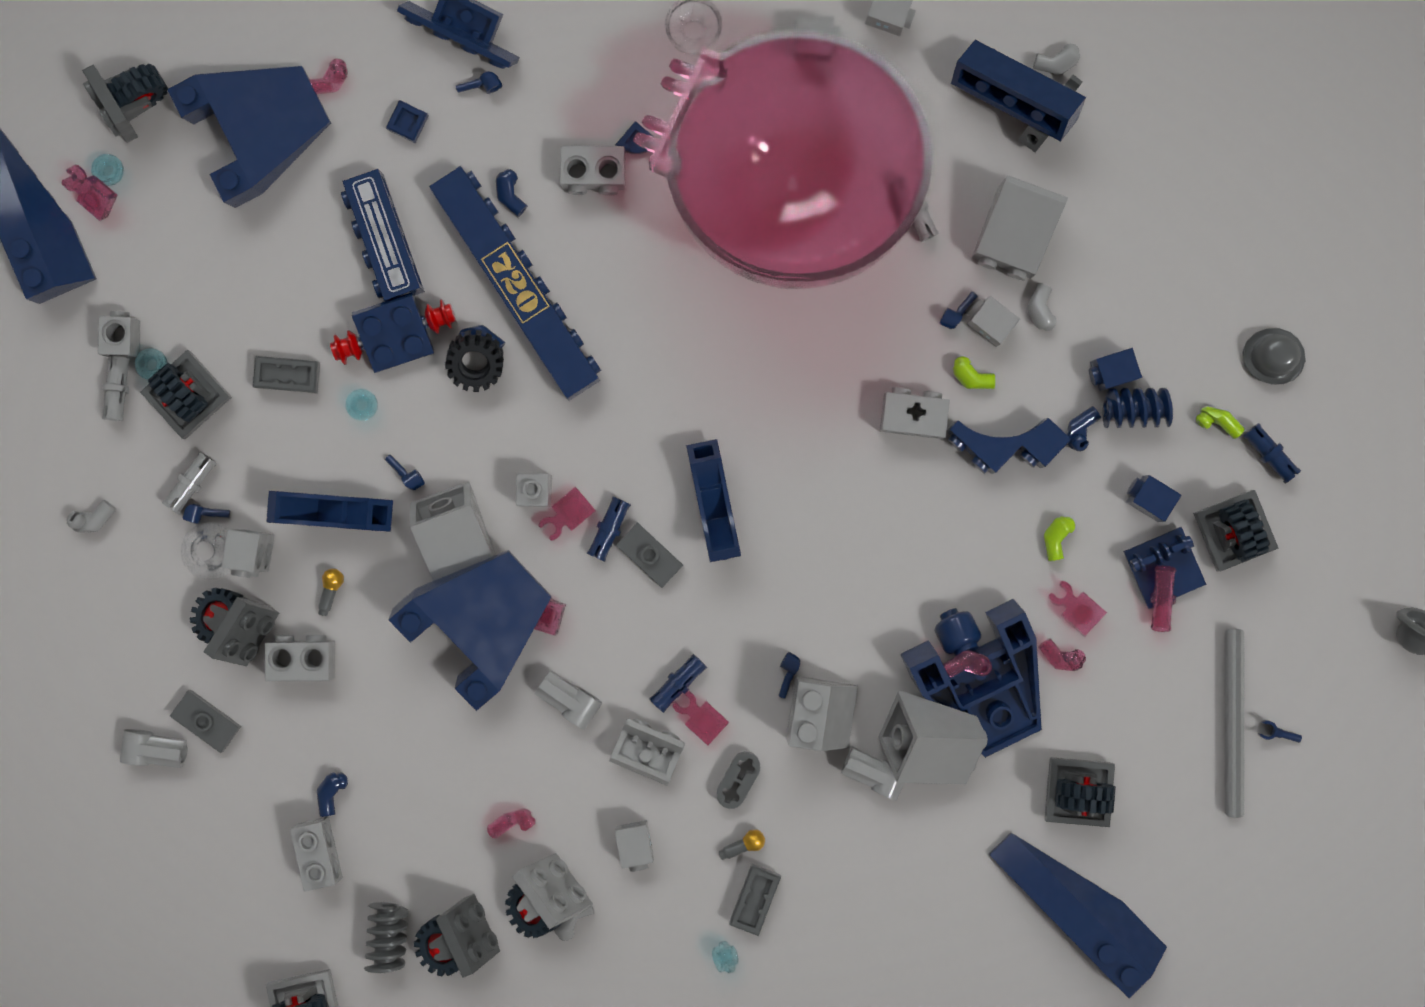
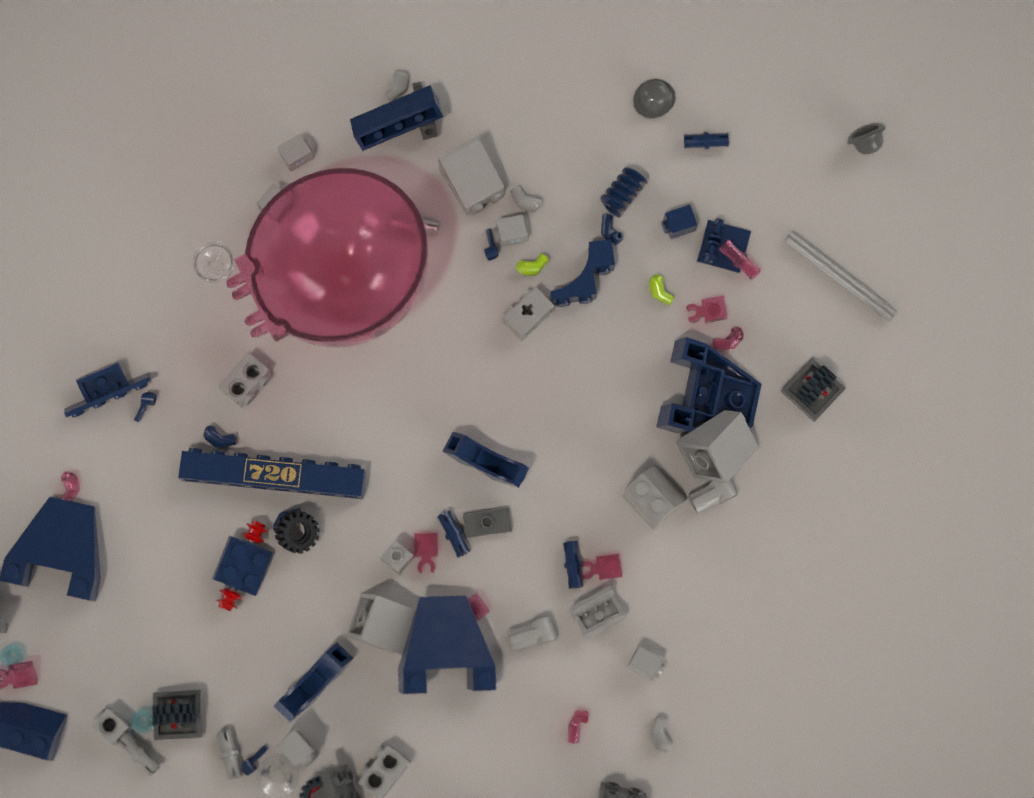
camera: 55 degrees left, 10 degrees down
(286, 374) = (214, 647): dark grey plate -> none
(332, 581) = (353, 716): piece -> none
(352, 400) = (260, 618): clear light blue plate -> none
(382, 235) = (182, 527): dark blue brick -> none
(407, 121) = (130, 463): dark blue tile -> none
(412, 480) = (333, 624): dark blue hand -> none
(545, 897) = (635, 738): light grey plate -> none
(627, 139) = (249, 344): dark blue tile -> none
(725, 957) = (752, 663): clear light blue plate -> none
(744, 784) = (660, 572): dark grey beam -> none
(752, 841) = (697, 594): piece -> none
(755, 899) = (732, 620): dark grey plate -> none
(791, 664) = (614, 492): dark blue hand -> none
(957, 632) = (669, 385): dark blue head -> none
(970, 662) = (691, 390): clear pink arm -> none
(1085, 913) = (884, 441): dark blue wedge -> none
(1114, 369) = (592, 187): dark blue brick -> none
(1221, 417) = (665, 151): lime arm -> none
(1235, 530) = (733, 192): plate -> none
(1280, 733) = (864, 257): dark blue hand -> none

